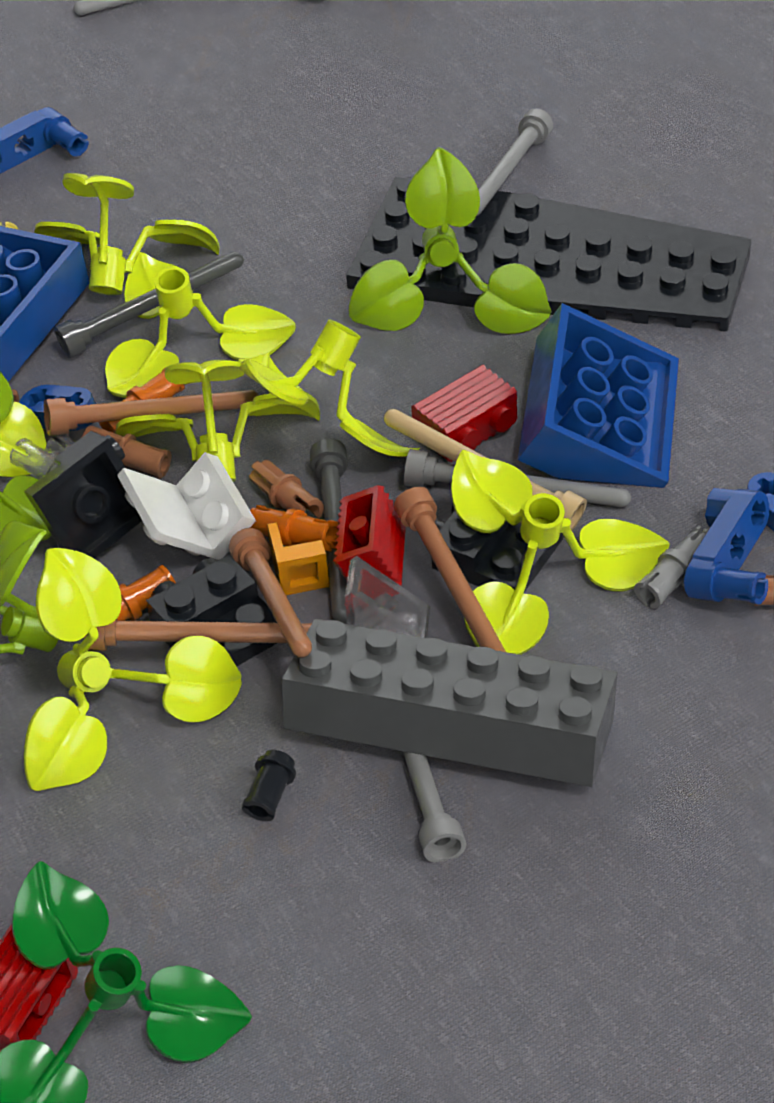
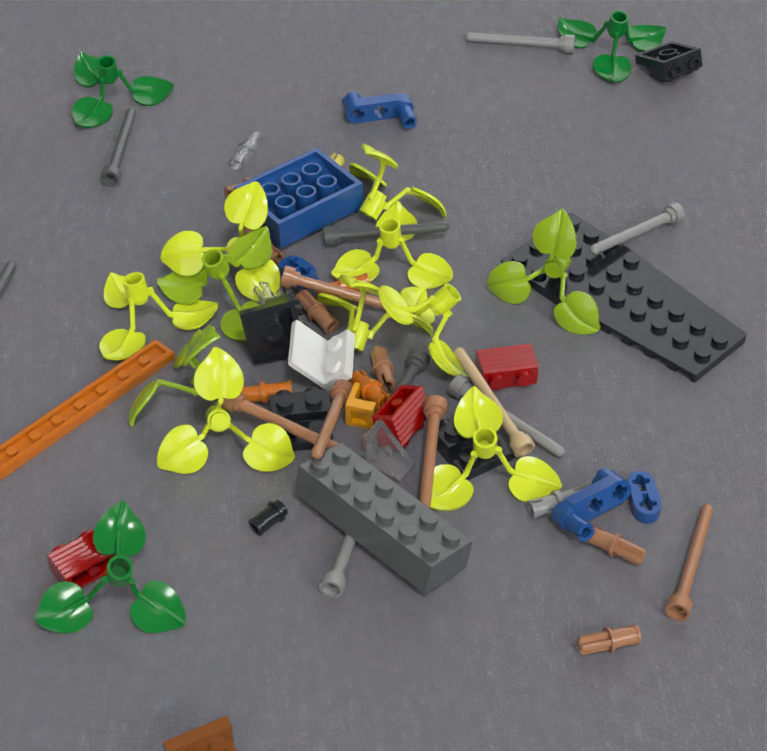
camera: 25 degrees right, 0 degrees up
(599, 404) = (584, 393): blue slope -> none

